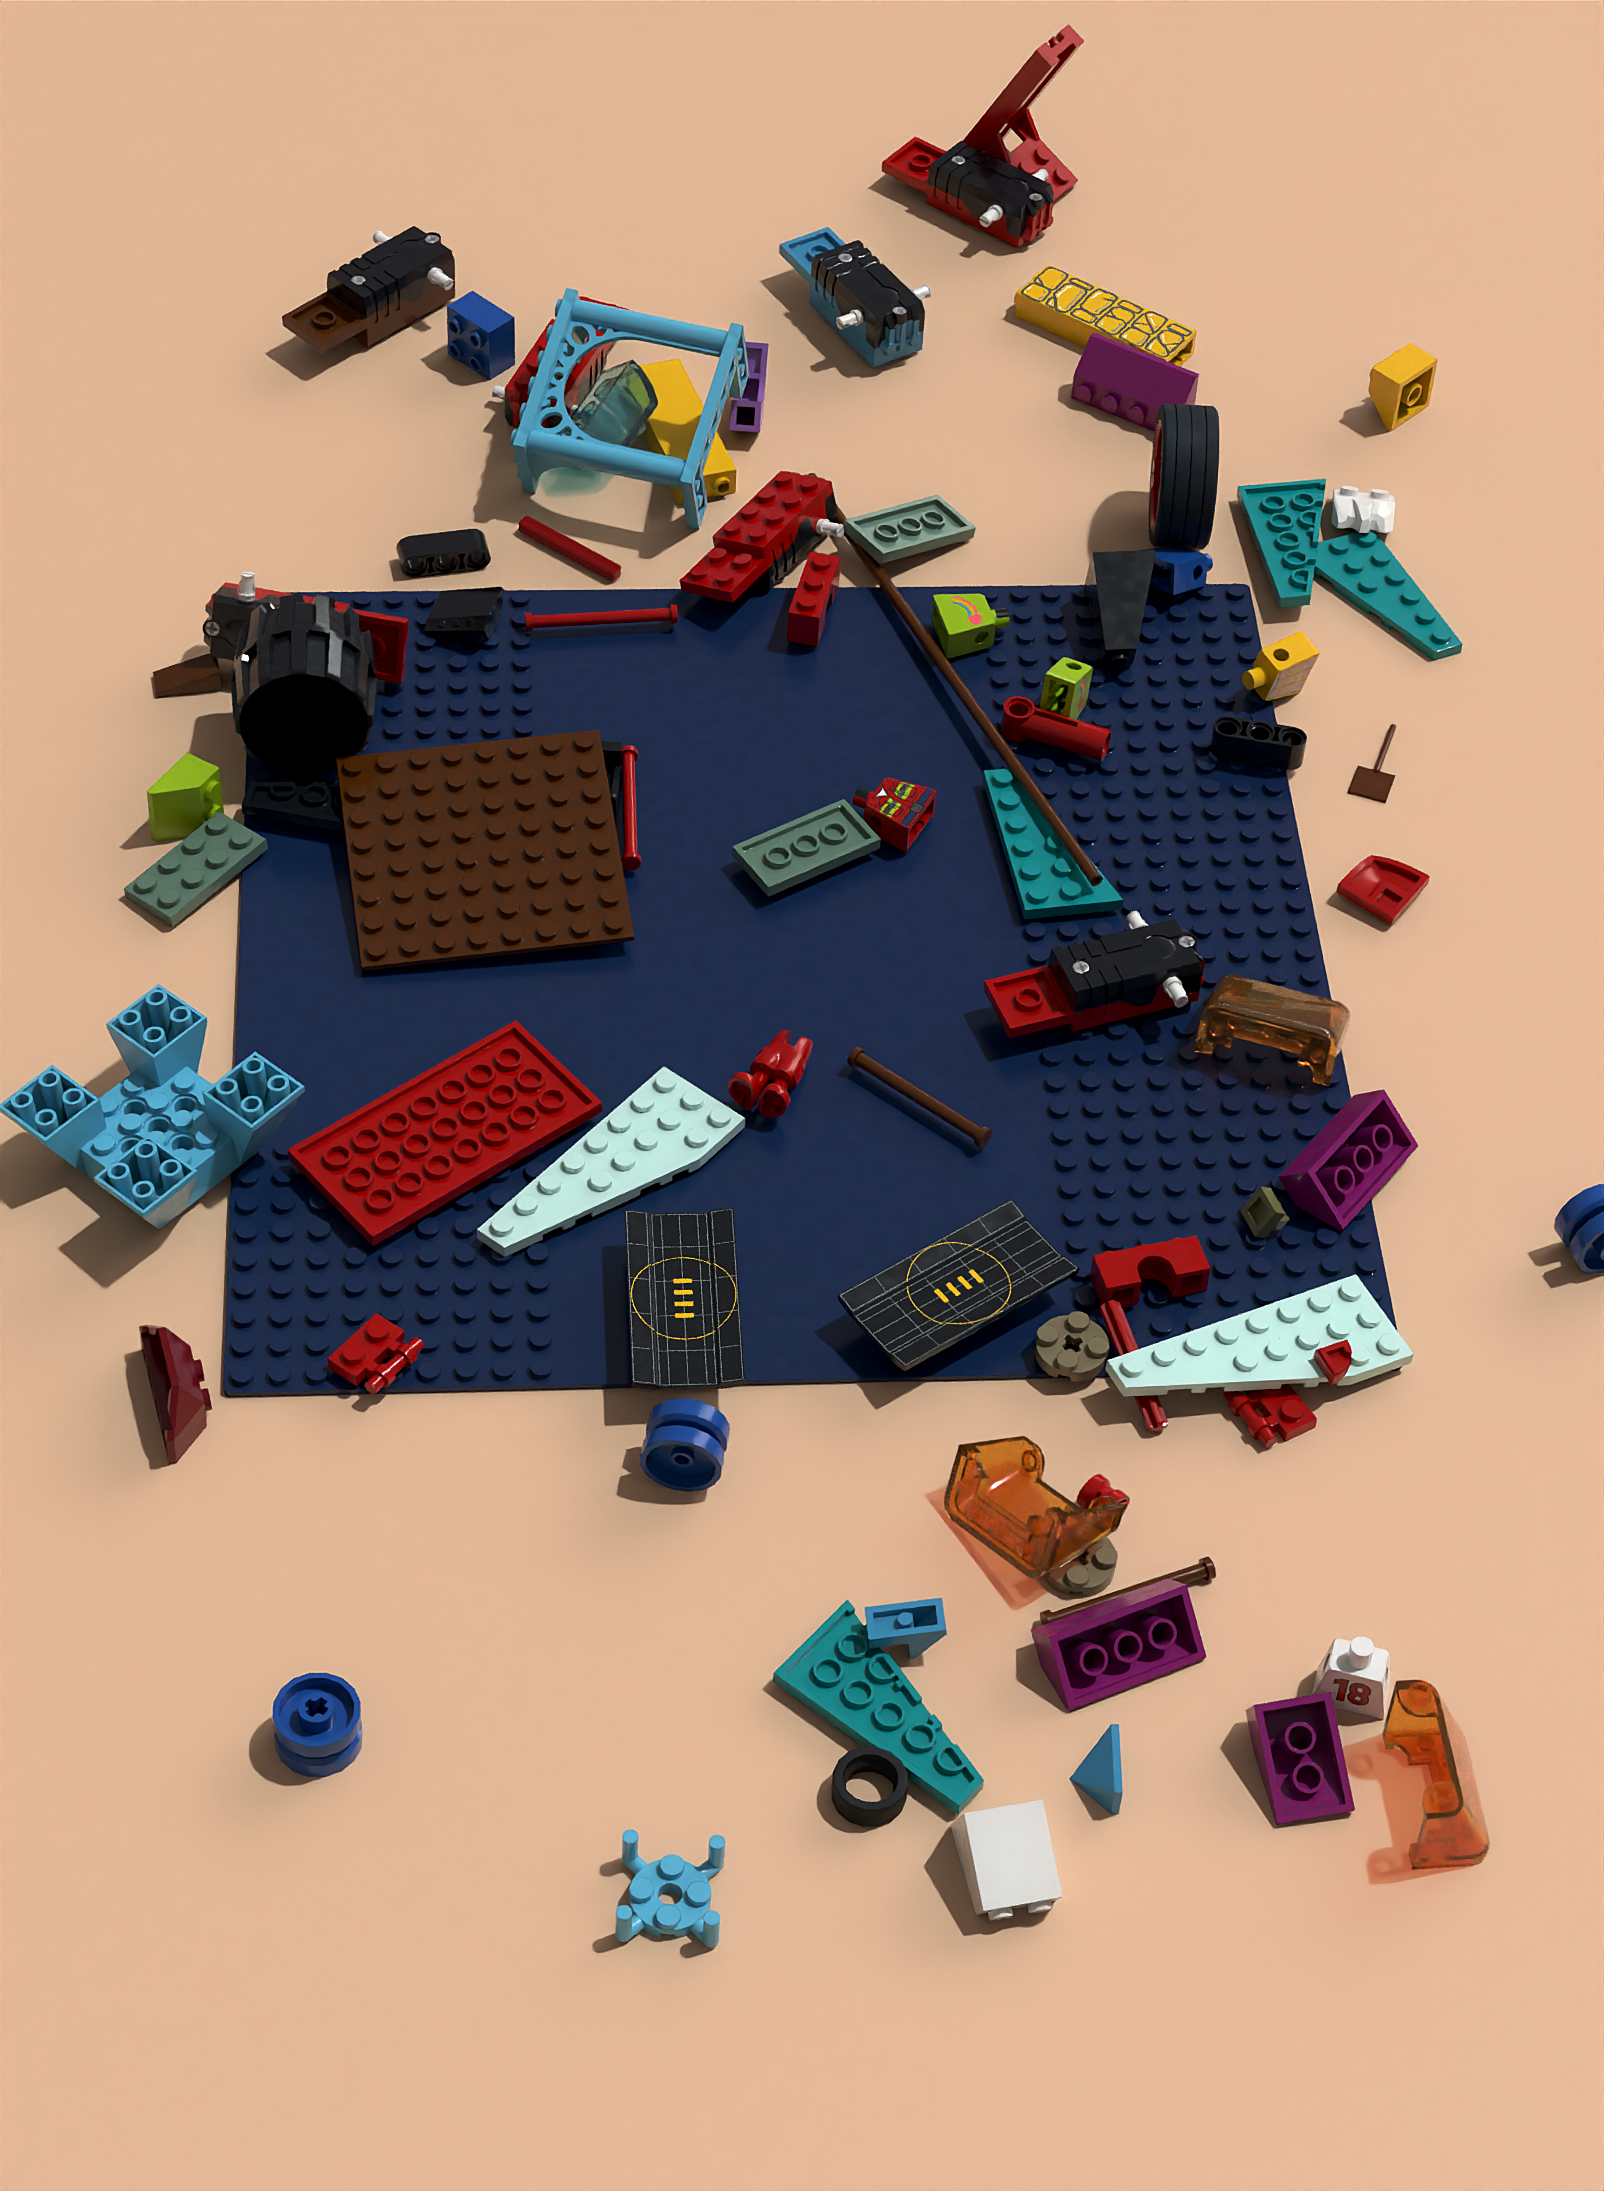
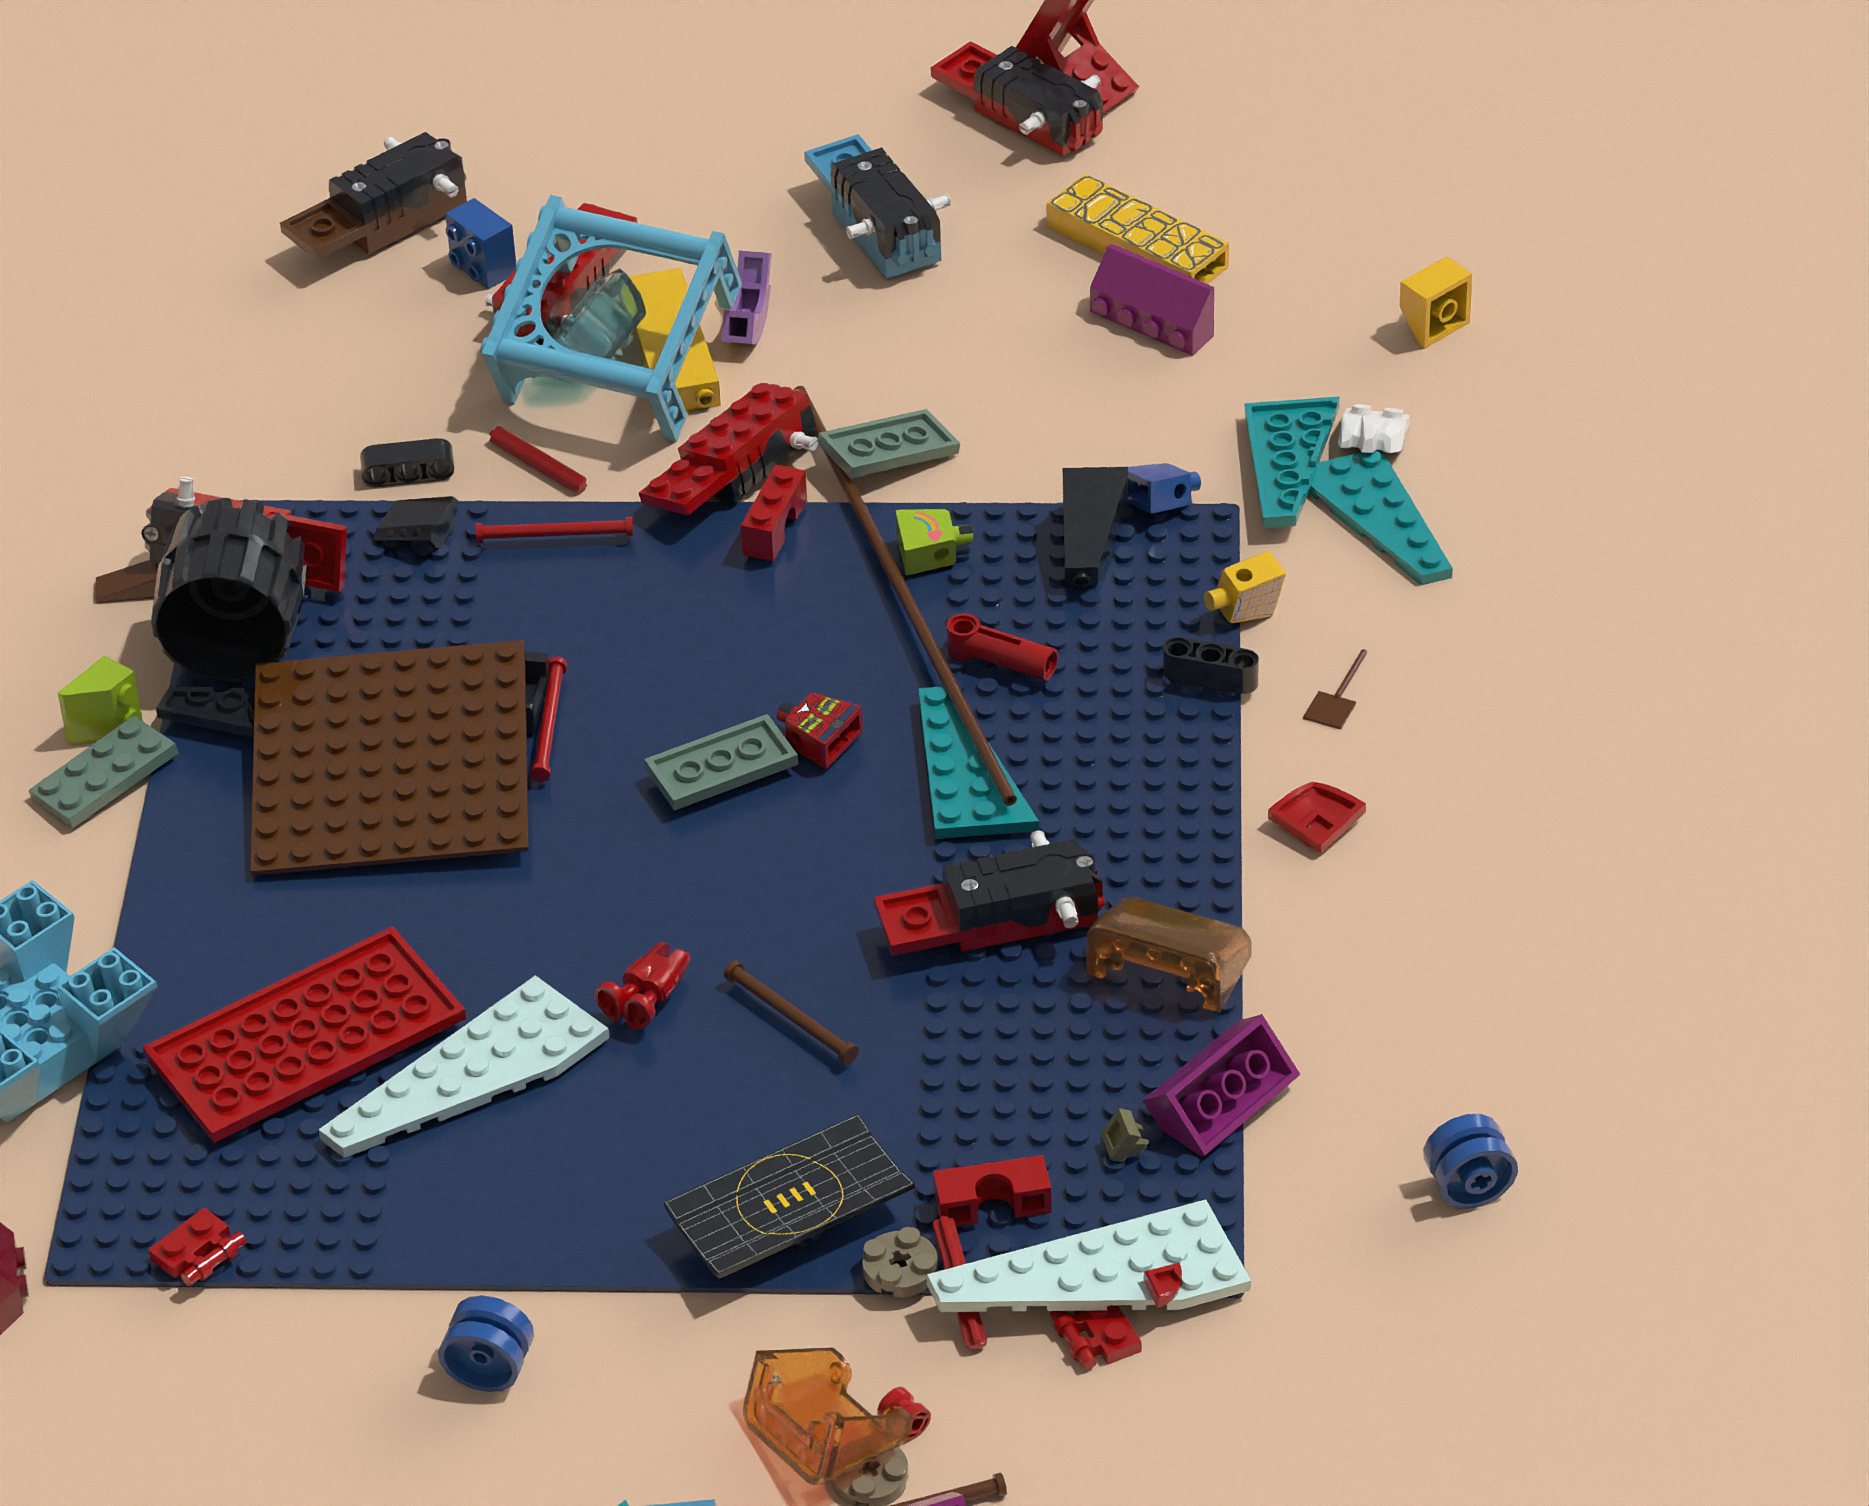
camera: 10 degrees right, 5 degrees down
(683, 1300) = (508, 1203): black hinge -> none
(1068, 683) = (1017, 606): lime torso -> none
(1184, 475) = (1174, 391): black wheel -> none

